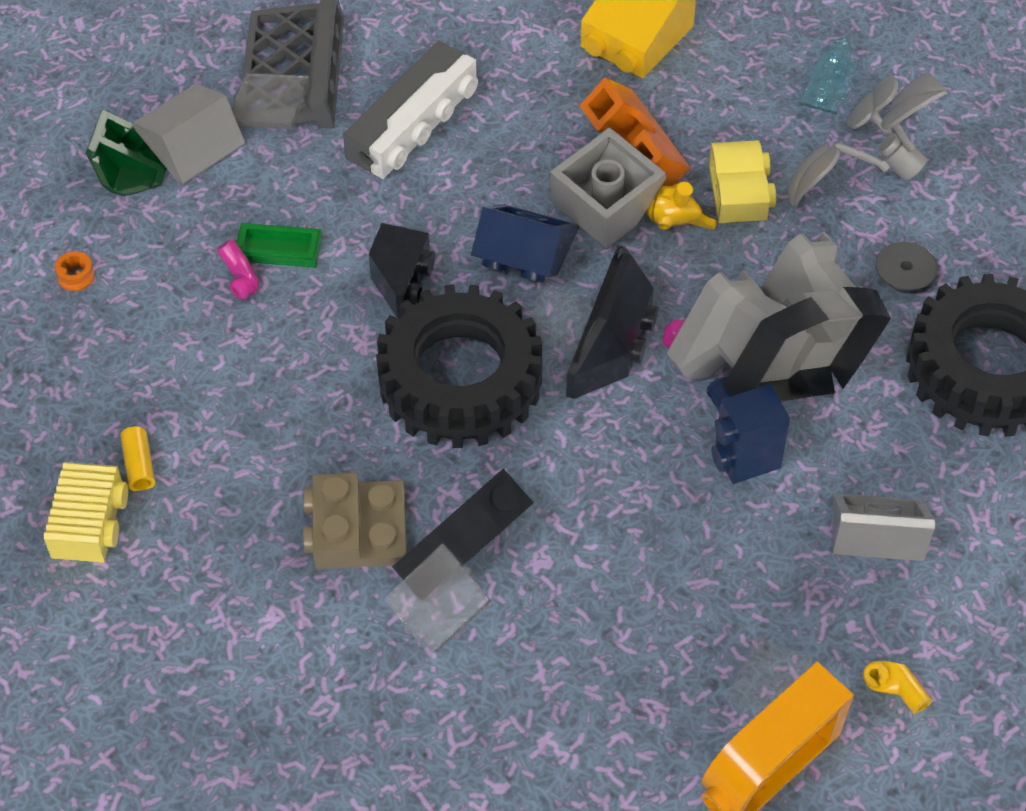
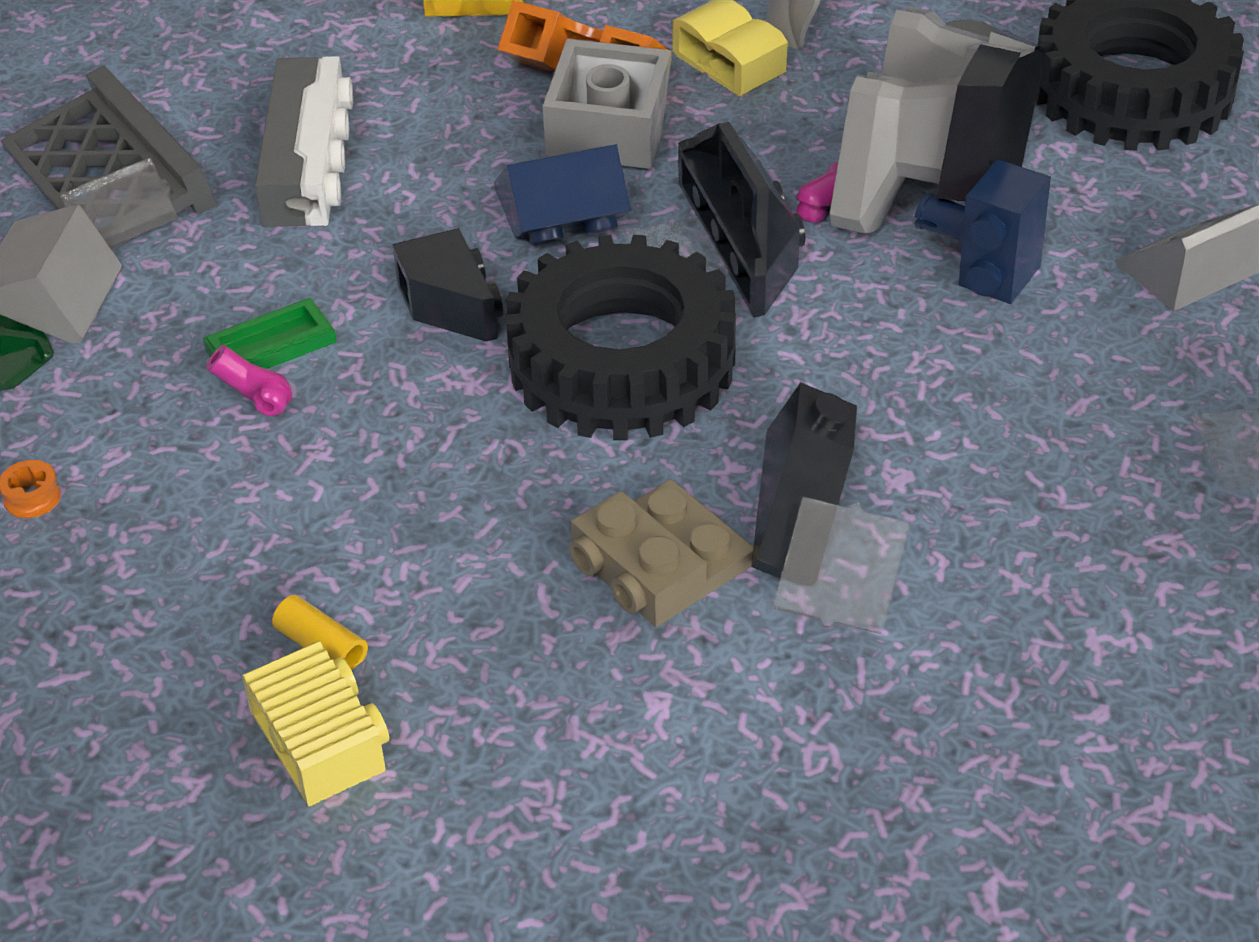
camera: 35 degrees left, 10 degrees down
(676, 207) = (695, 92): yellow piece -> none

